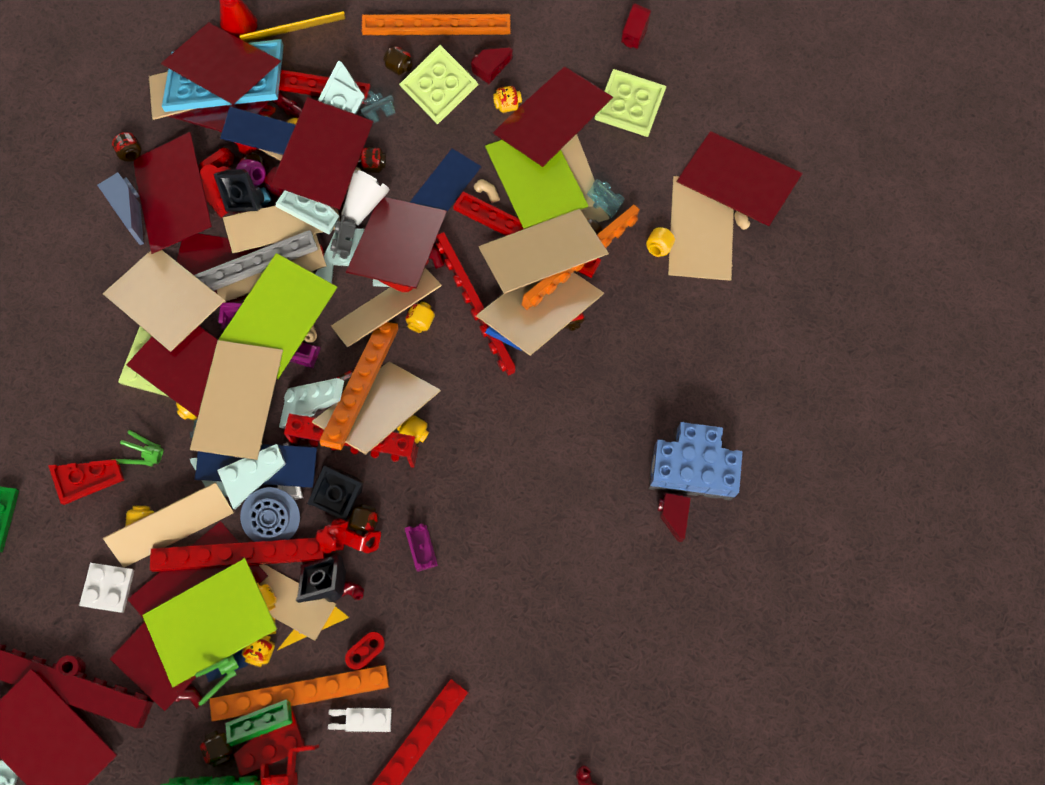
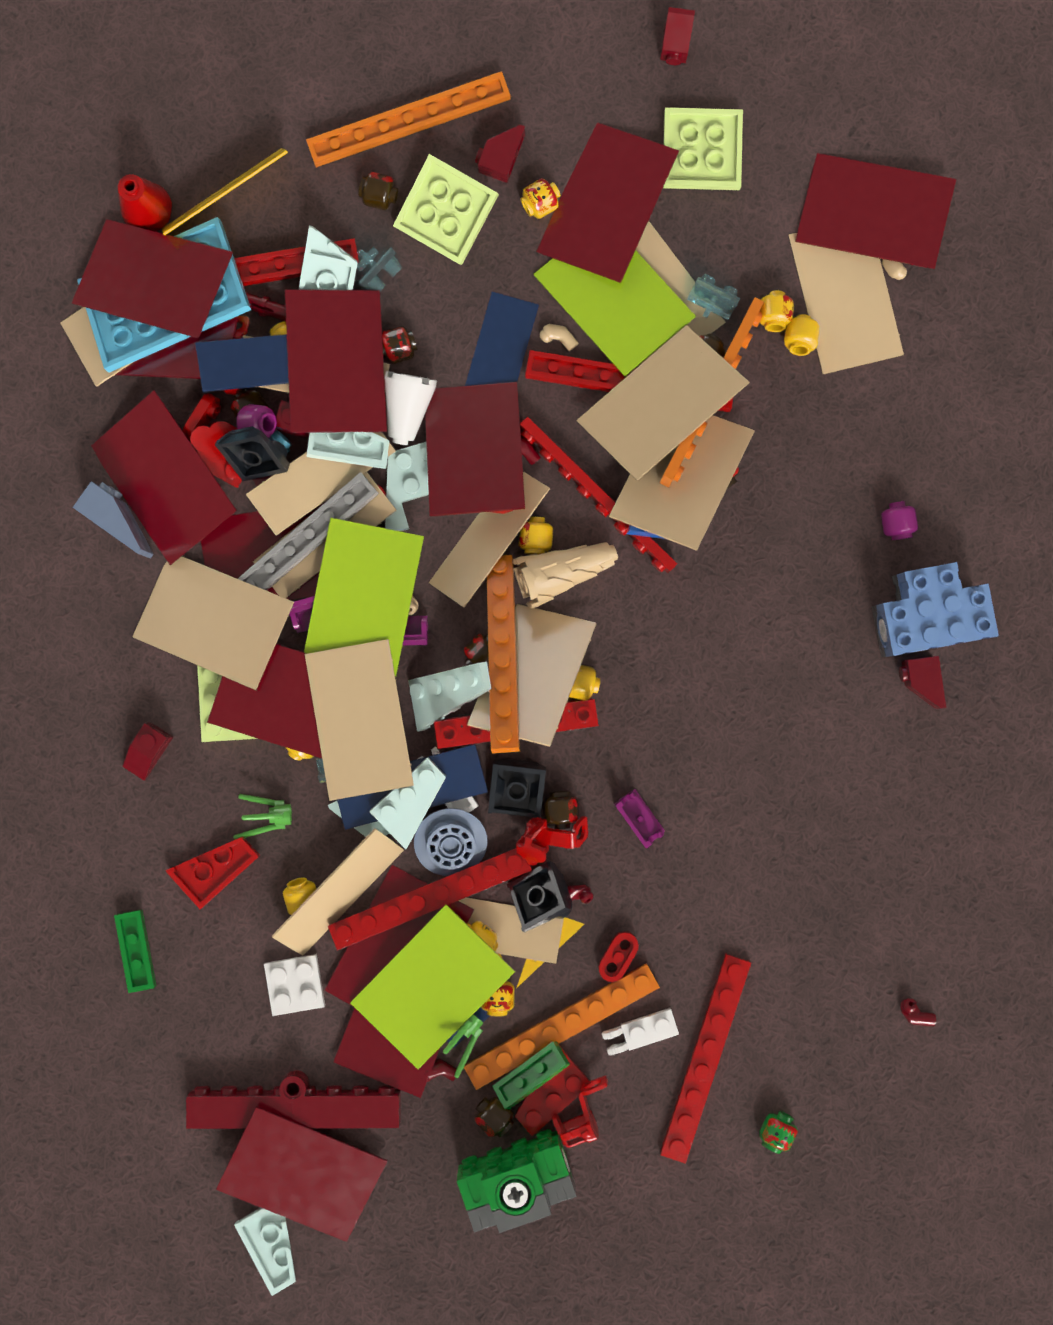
camera: 15 degrees left, 15 degrees up
(75, 373) = (146, 750): none -> dark red slope
(126, 146) = (77, 434): dark brown head -> none
(344, 230) = (401, 457): dark grey hinge -> none
(427, 344) = (557, 571): none -> tan cone
(647, 220) = (776, 311): none -> yellow head
(691, 391) = (899, 521): none -> magenta head

